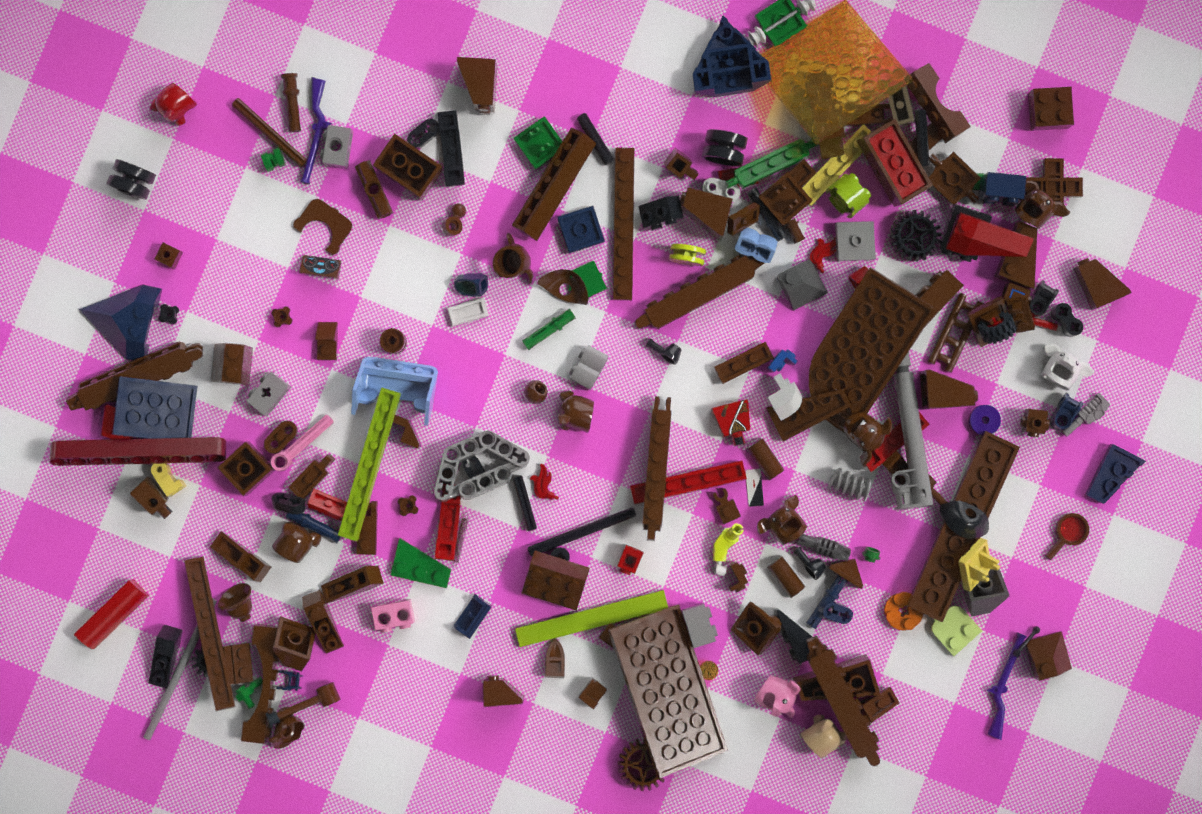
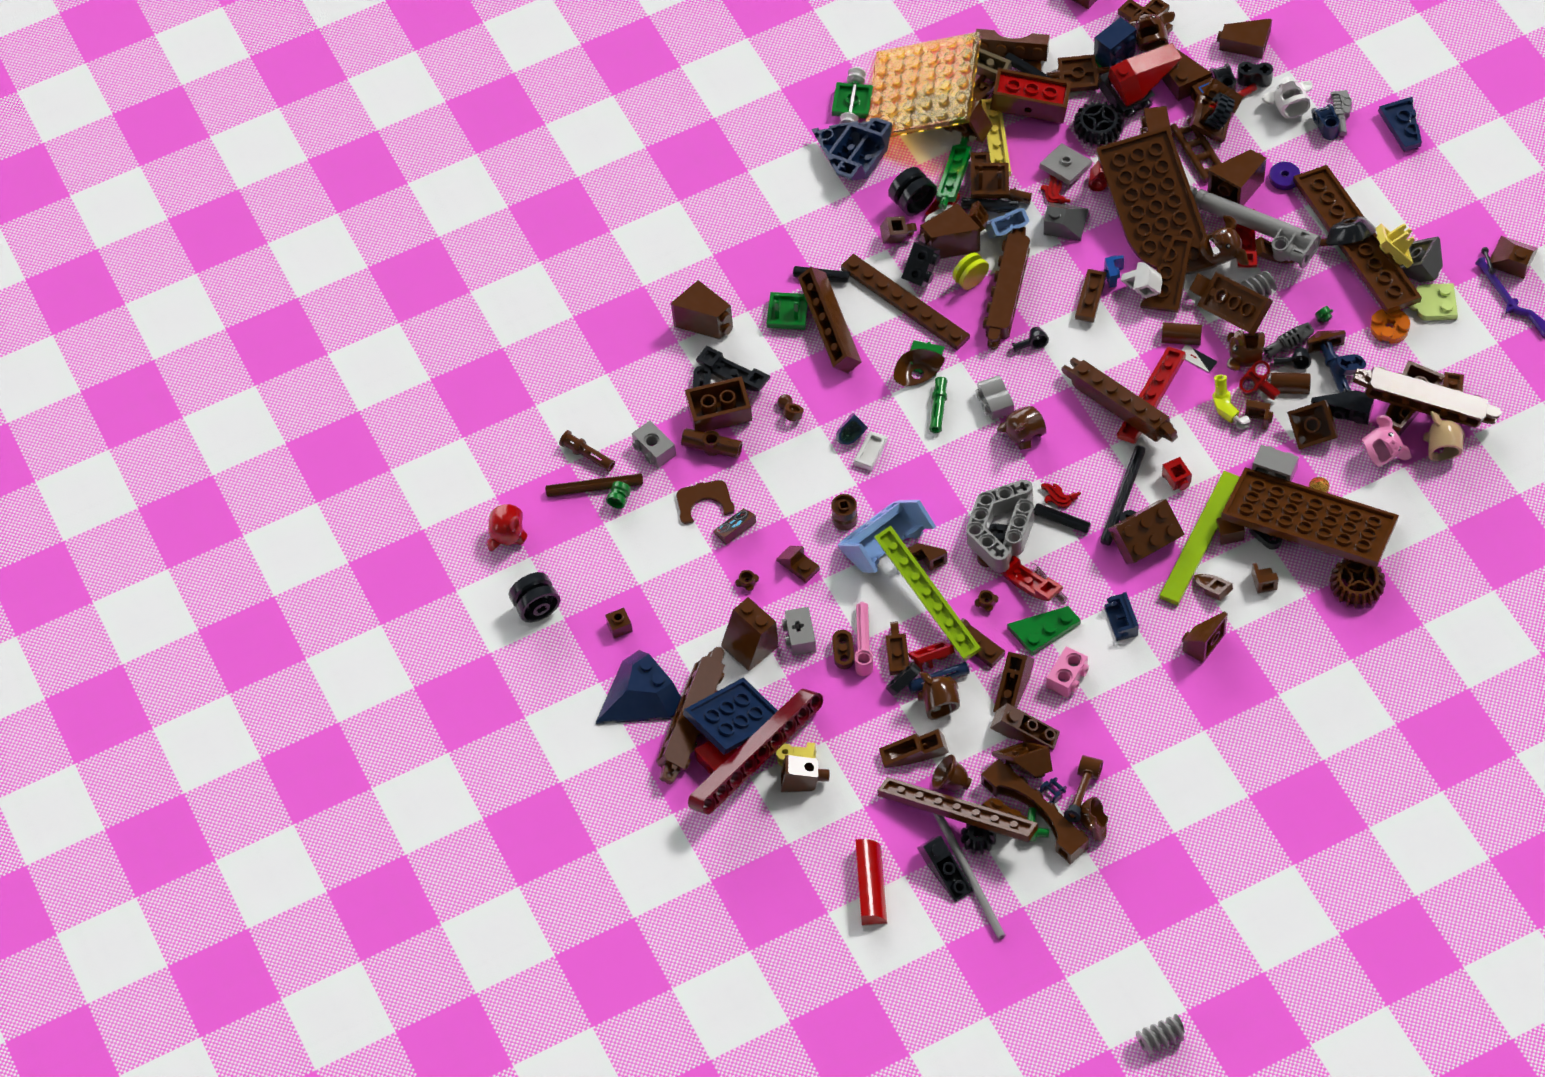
camera: 45 degrees left, 30 degrees down
(163, 314) = (665, 653): black plate -> none
(246, 468) = (845, 687): reddish brown brick -> none
(317, 88) = (624, 448): dark purple piece -> none
(512, 260) = (862, 386): reddish brown piece -> none
(535, 392) = (979, 445): reddish brown piece -> none
(581, 229) = (881, 330): dark blue plate -> none
(727, 509) = (1197, 386): reddish brown plate -> none
(733, 420) = (1129, 331): red torso -> none
(764, 555) = (1260, 381): none -> red beam
(816, 490) = (1240, 305): none -> reddish brown hinge
(848, 195) = (1026, 140): lime brick -> none
(1041, 422) = (1315, 141): reddish brown brick -> none
(1071, 530) = (1425, 178): piece -> none

